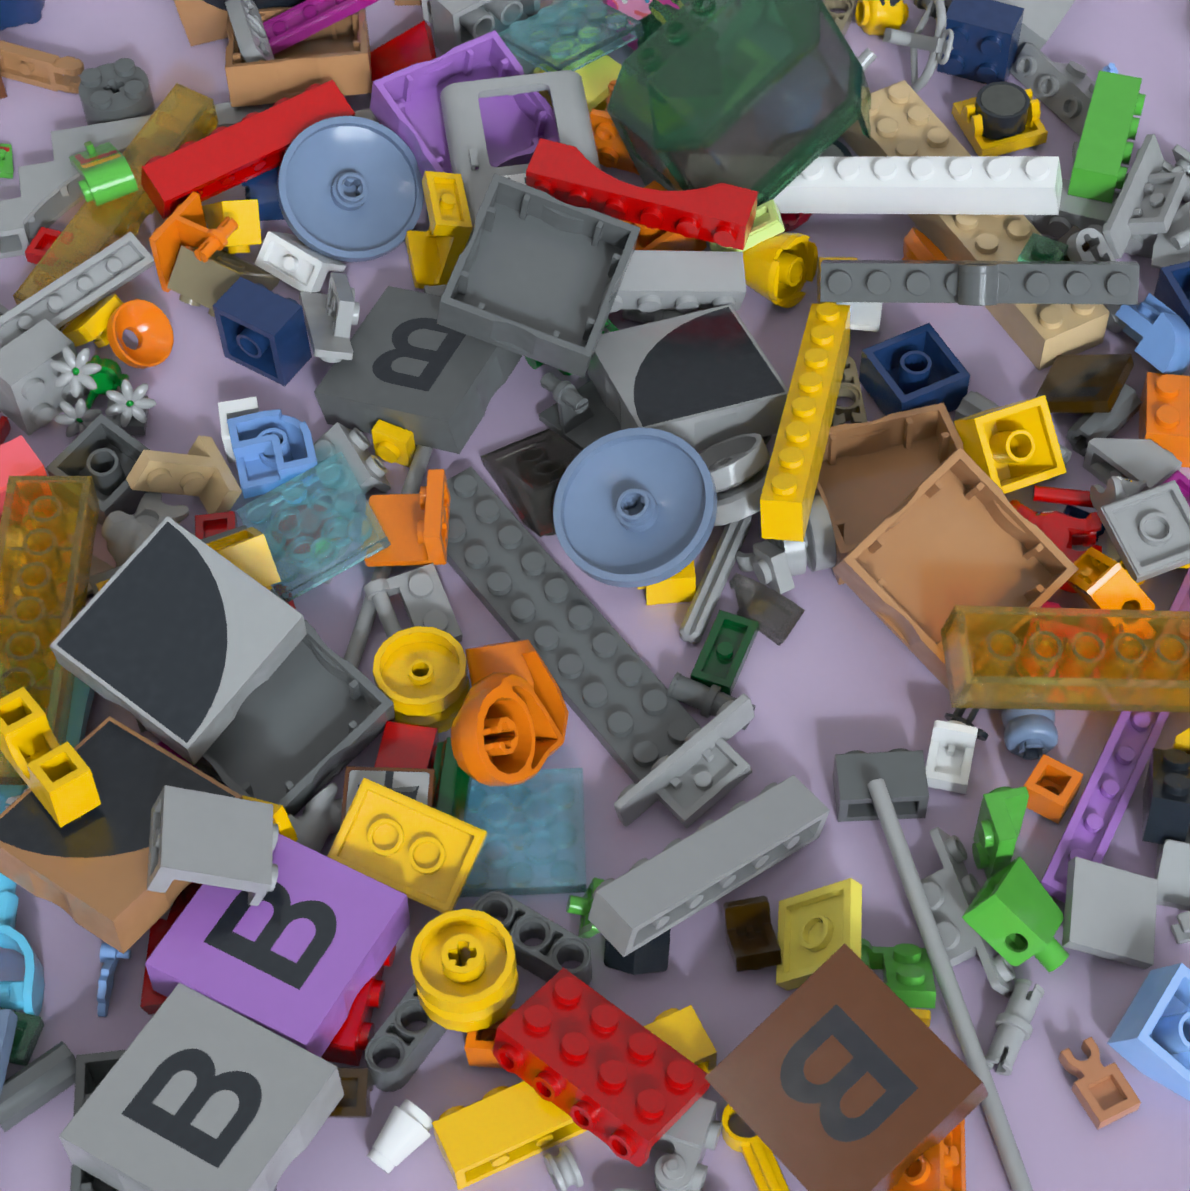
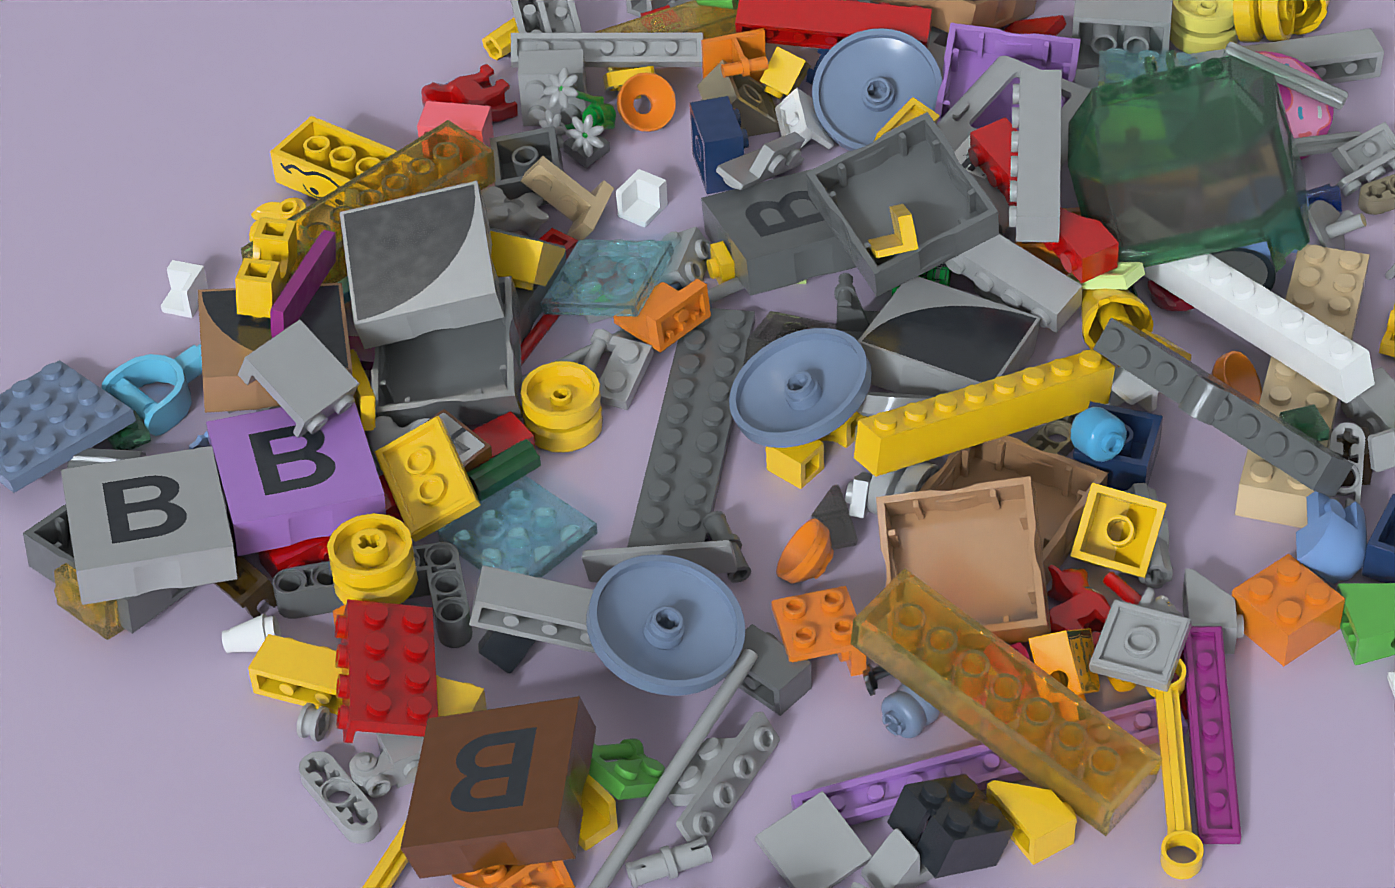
camera: 45 degrees right, 10 degrees down
(94, 748) = (304, 283): none -> magenta tile
(270, 450) = (636, 215): medium blue brick -> none
(509, 715) = (572, 452): orange piece -> none
(577, 305) = (904, 234): none -> yellow panel
(620, 154) = (1038, 156): none -> light grey brick
(714, 580) = (810, 486): light grey axle -> none
(725, 651) = (770, 525): dark green plate -> none
(751, 934) = (583, 679): dark brown bracket -> none
(776, 655) = (806, 553): none -> orange piece
(802, 815) = (665, 625): none -> sand blue dish
(815, 927) = (619, 709): light yellow plate -> none
(889, 711) = (819, 626): none -> orange bracket
(918, 373) = (1098, 434): none -> dark azure head
(950, 755) = (833, 688): white bracket -> none
(998, 828) = (797, 739): bright green bracket -> none
(1018, 917) = (741, 796): bright green torso -> none
(1052, 788) = (872, 750): orange plate -> none
(1085, 382) = (1241, 535): dark brown tile -> none
(1104, 424) = (1230, 570): dark grey axle -> none

